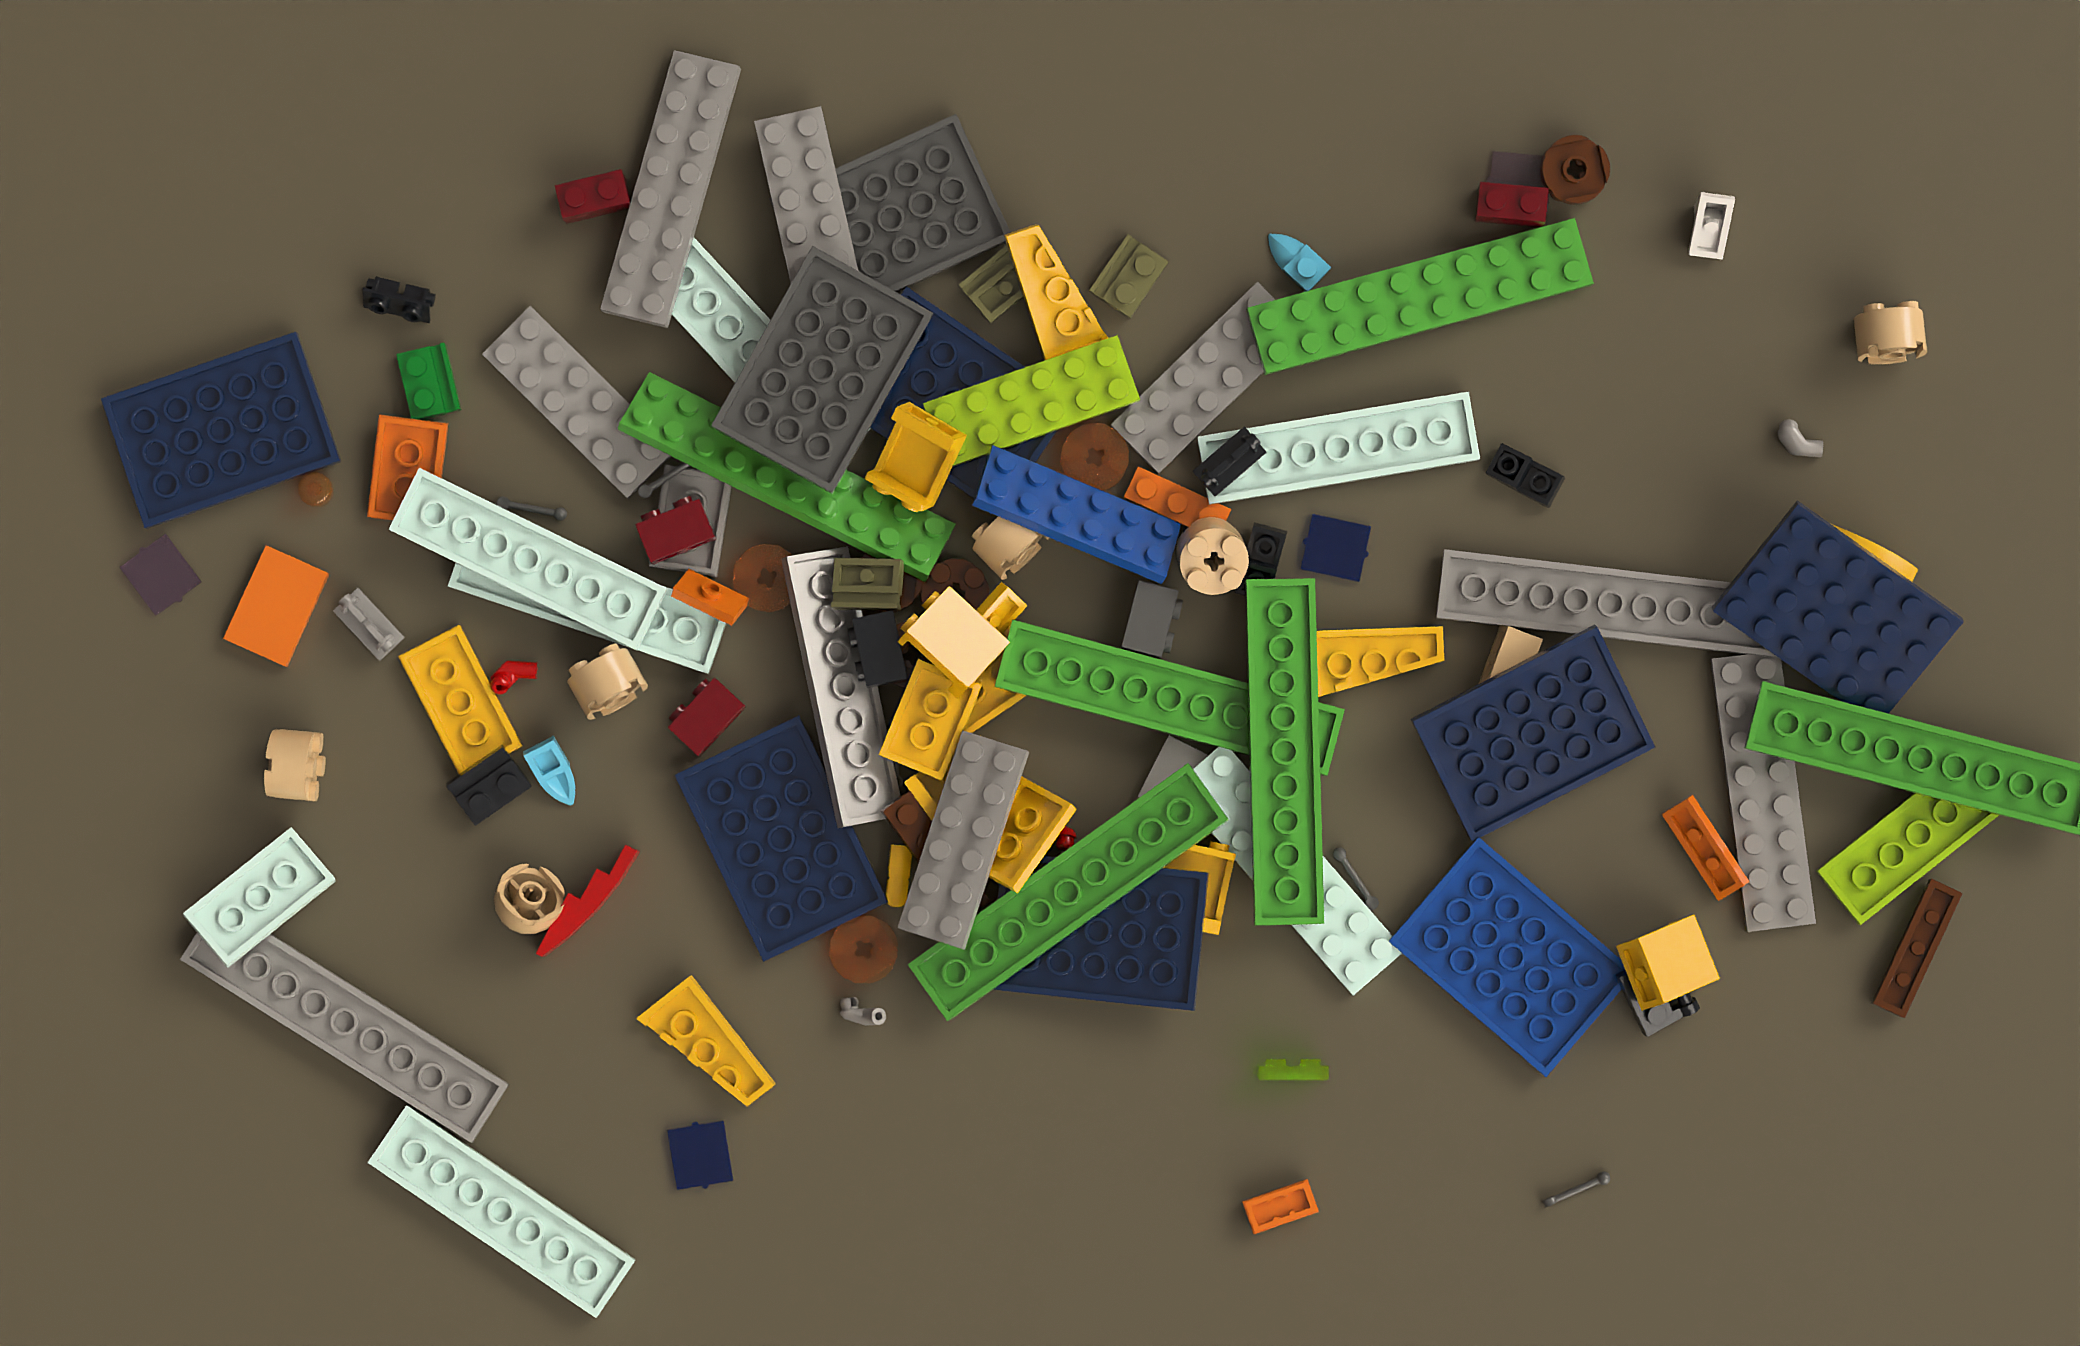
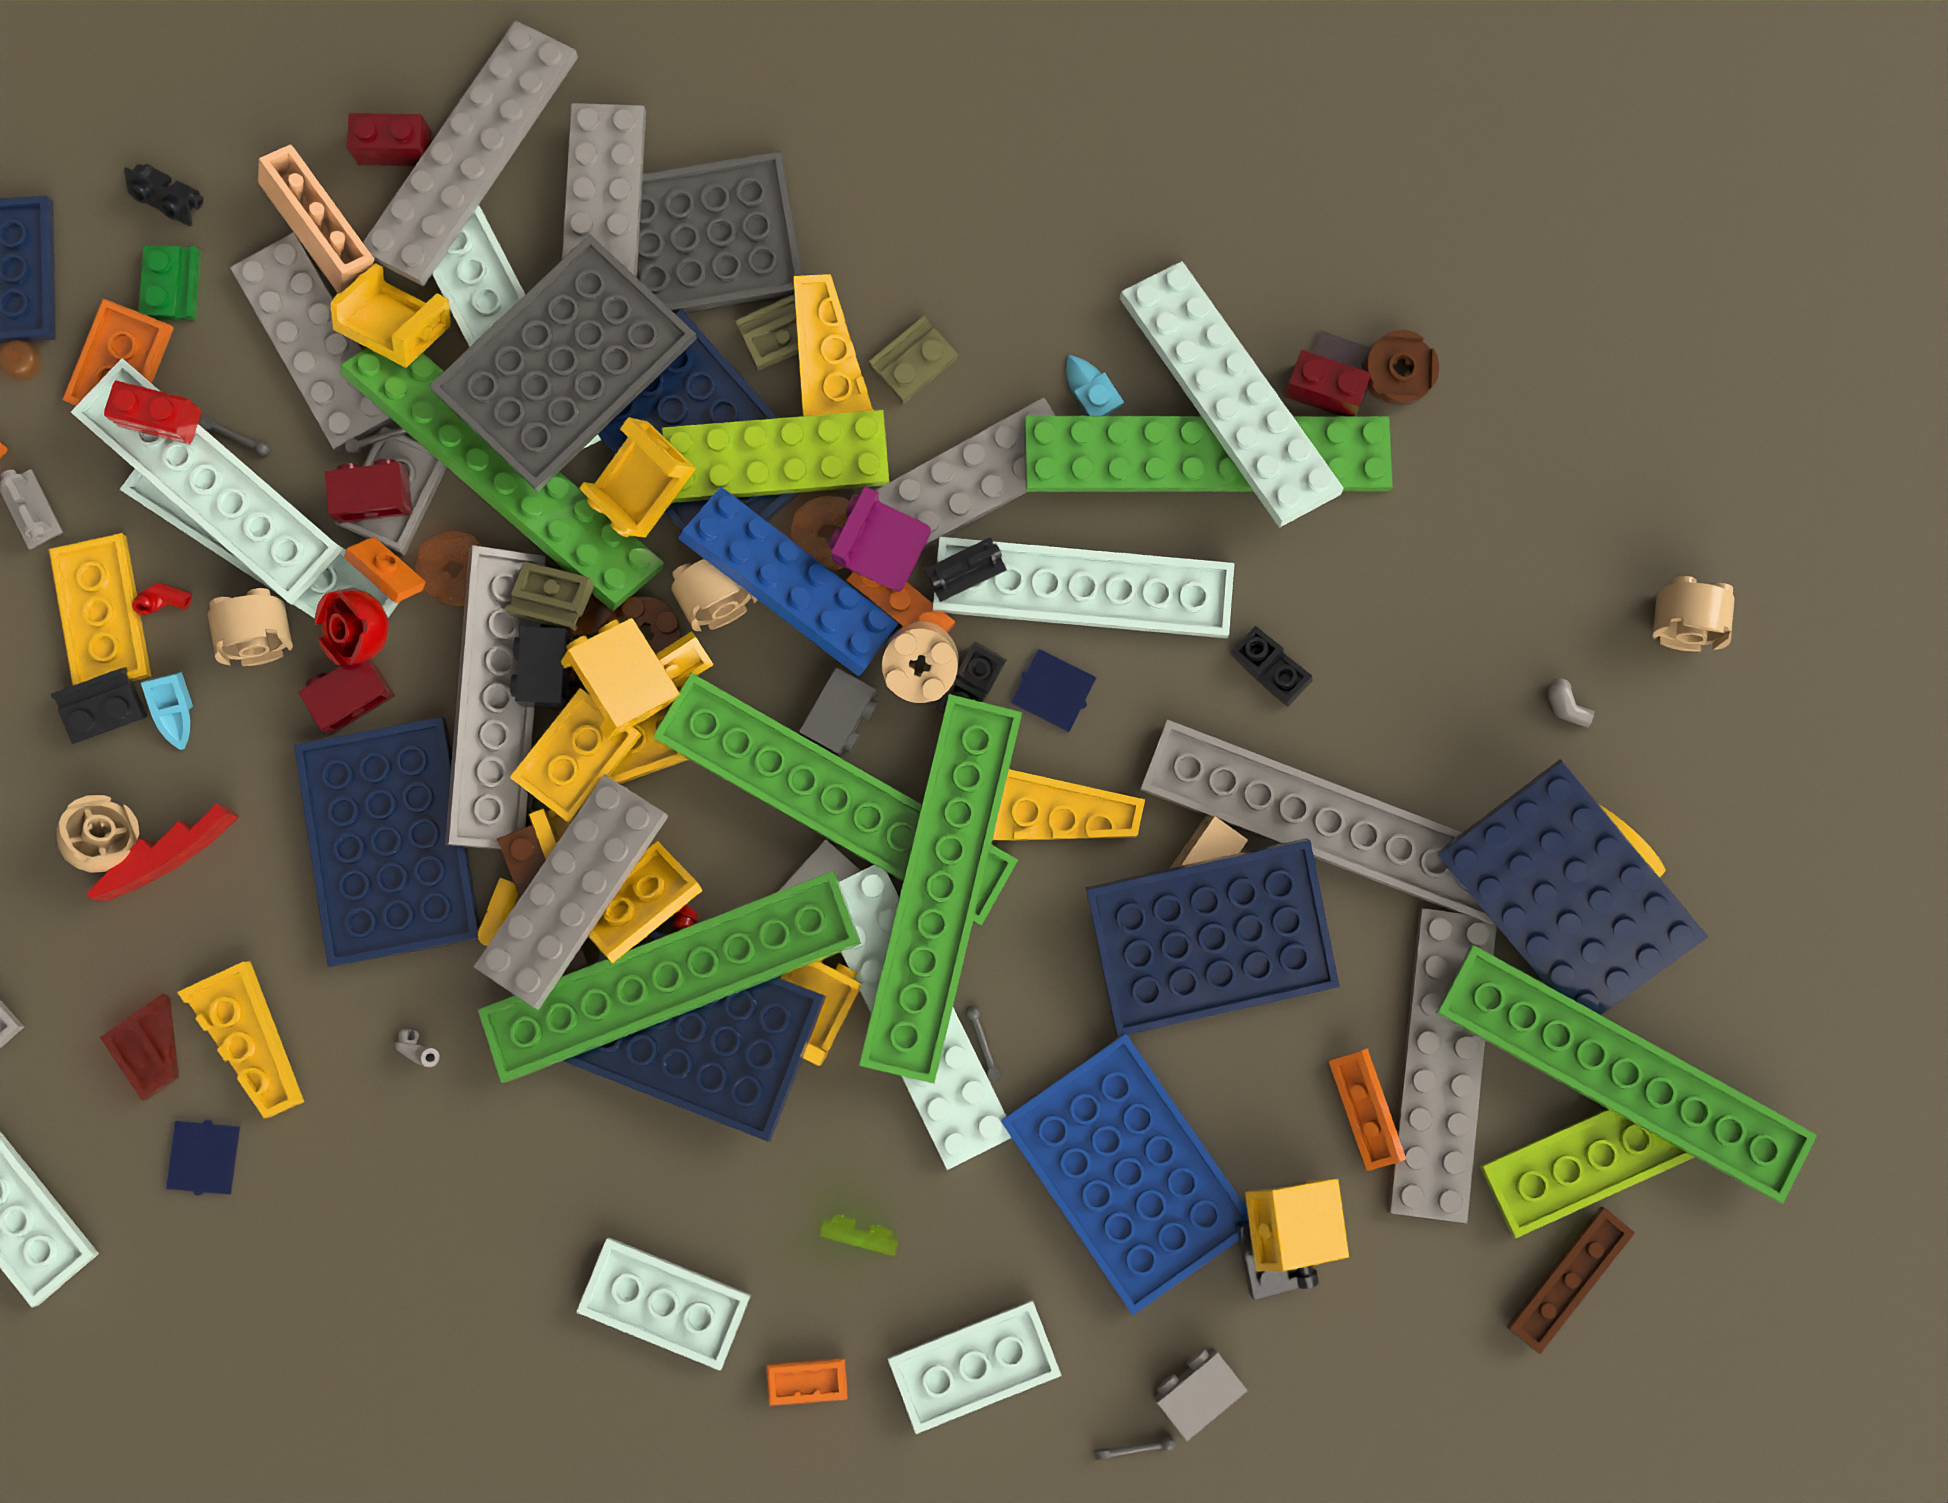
camera: 10 degrees right, 5 degrees down
(469, 512) = (152, 412): none -> red brick
(550, 291) = (313, 217): none -> light nougat brick
(623, 1073) = (146, 1047): none -> clear red wing
(646, 366) = (388, 317): none -> yellow panel
(701, 658) = (352, 626): none -> red cylinder
(859, 968) = (459, 993): clear orange plate -> none
(1139, 1173) = (664, 1303): none -> light aqua plate
(1148, 457) = (879, 541): none -> magenta bracket
(1421, 1156) = (974, 1366): none -> light aqua plate
(1425, 236) = (1231, 394): none -> light aqua plate
(1619, 1127) = (1199, 1392): none -> light grey brick
(1711, 225) = (1530, 456): white slope -> none

